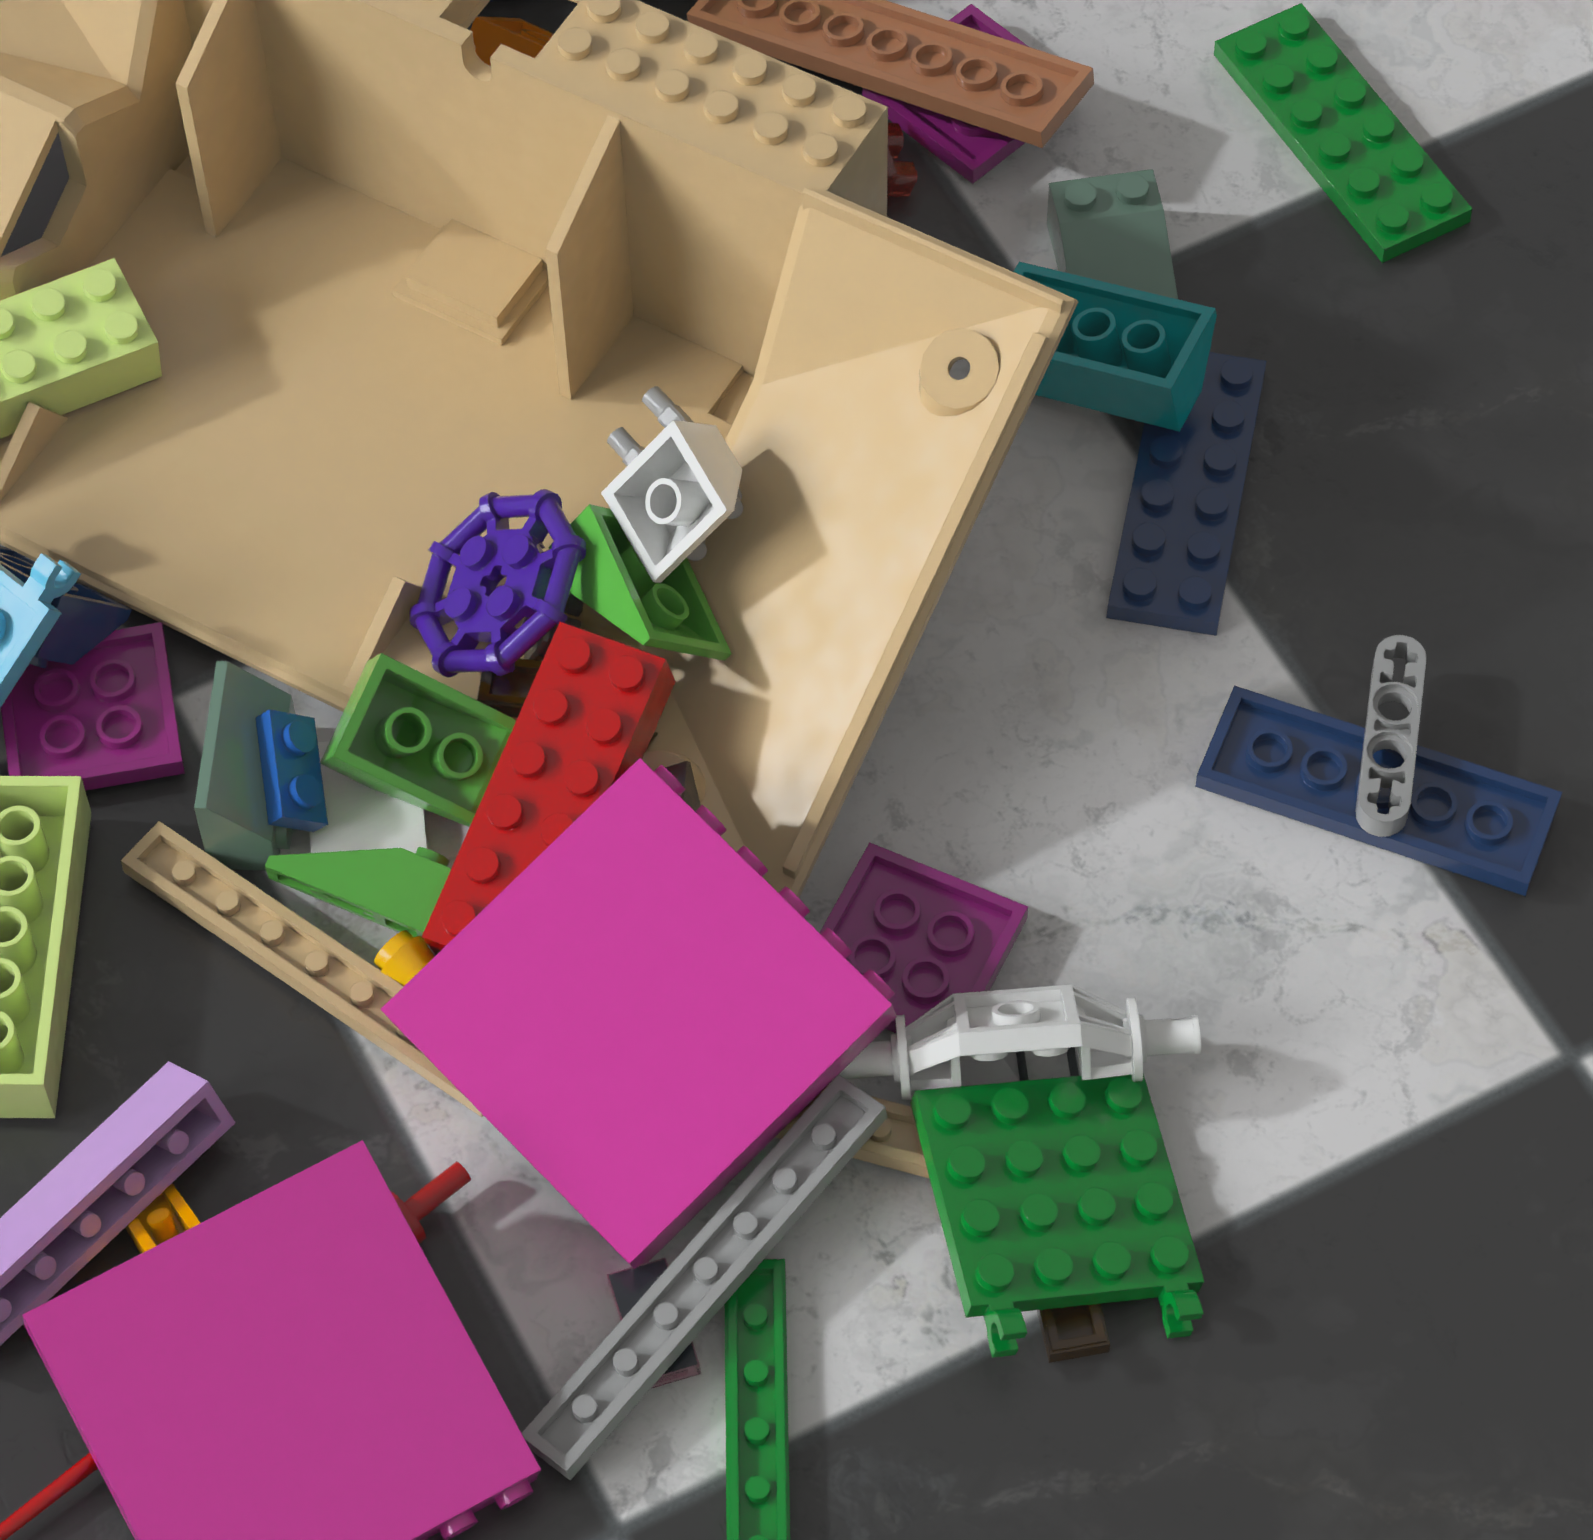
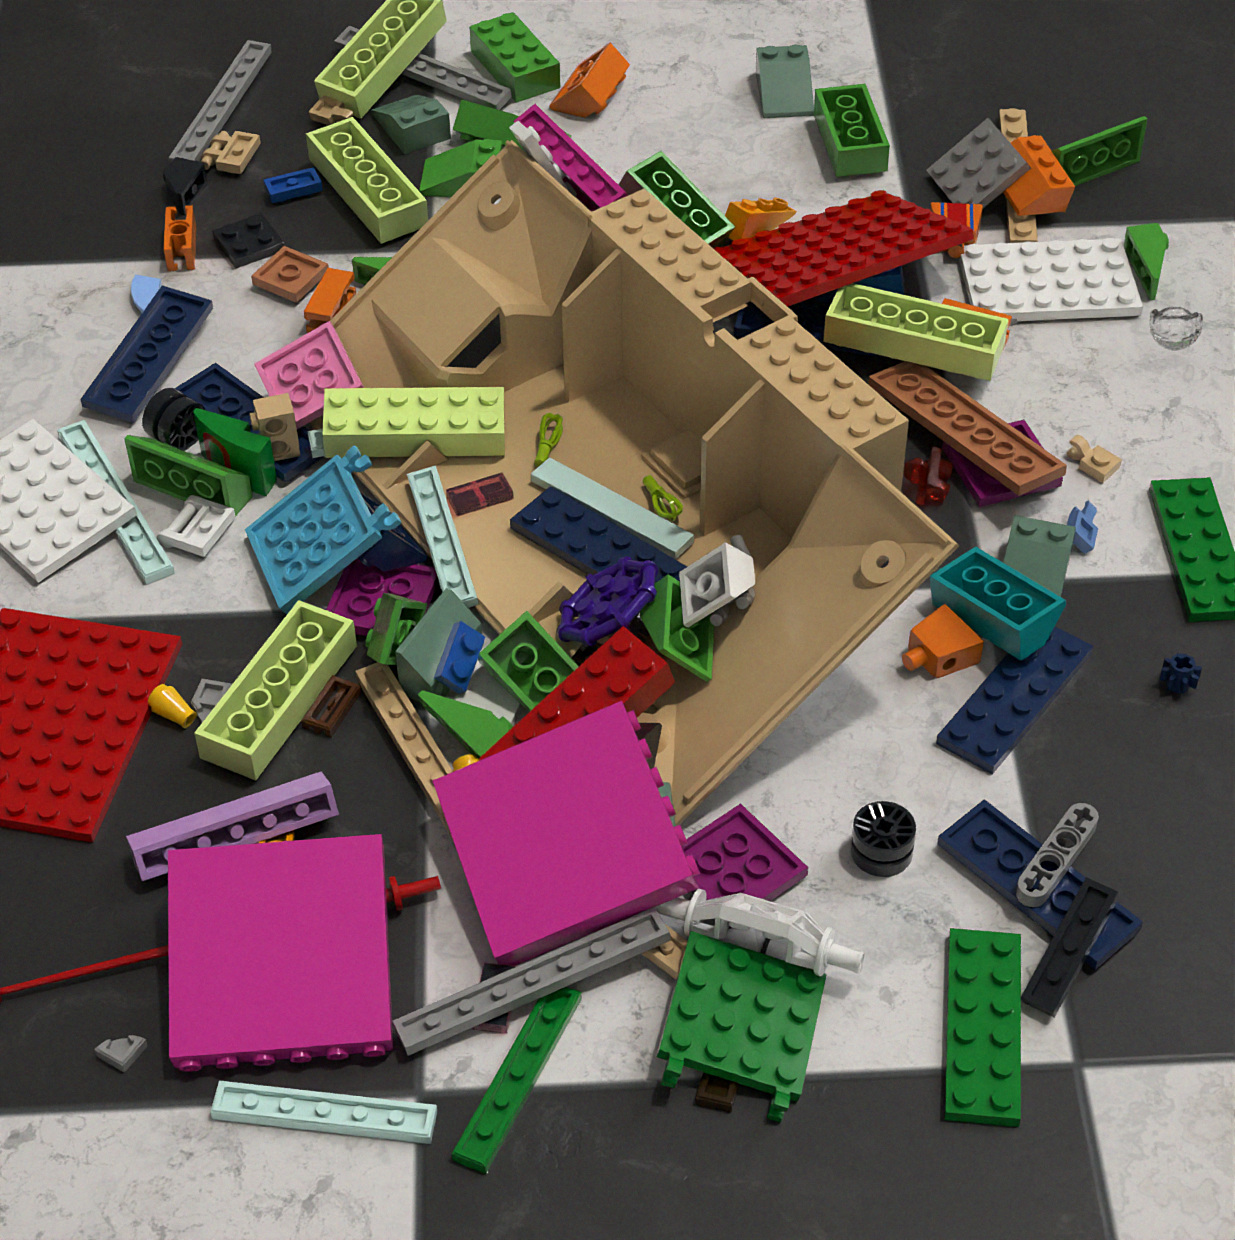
camera: 25 degrees right, 10 degrees down
(108, 976) = (347, 694): none -> reddish brown tile
(138, 563) = (441, 534): none -> light aqua tile
(156, 766) = (393, 624): none -> bright green slope
(159, 463) = (479, 494): none -> clear pink tile
(227, 334) = (546, 446): none -> lime piece
(393, 477) = (584, 536): none -> dark blue plate
(396, 406) = (614, 507): none -> light aqua tile
(459, 354) = (657, 494): none -> lime piece
(1049, 452) = (942, 644): none -> orange torso
(1113, 38) = (1096, 461): none -> tan plate
(1117, 813) = (883, 838): none -> black wheel
(1147, 152) = (1085, 530): none -> medium blue plate
(1410, 1056) = (983, 1028): none -> green plate
(1418, 358) = (1180, 673): none -> dark blue gear
(1484, 878) = (1070, 947): none -> black plate

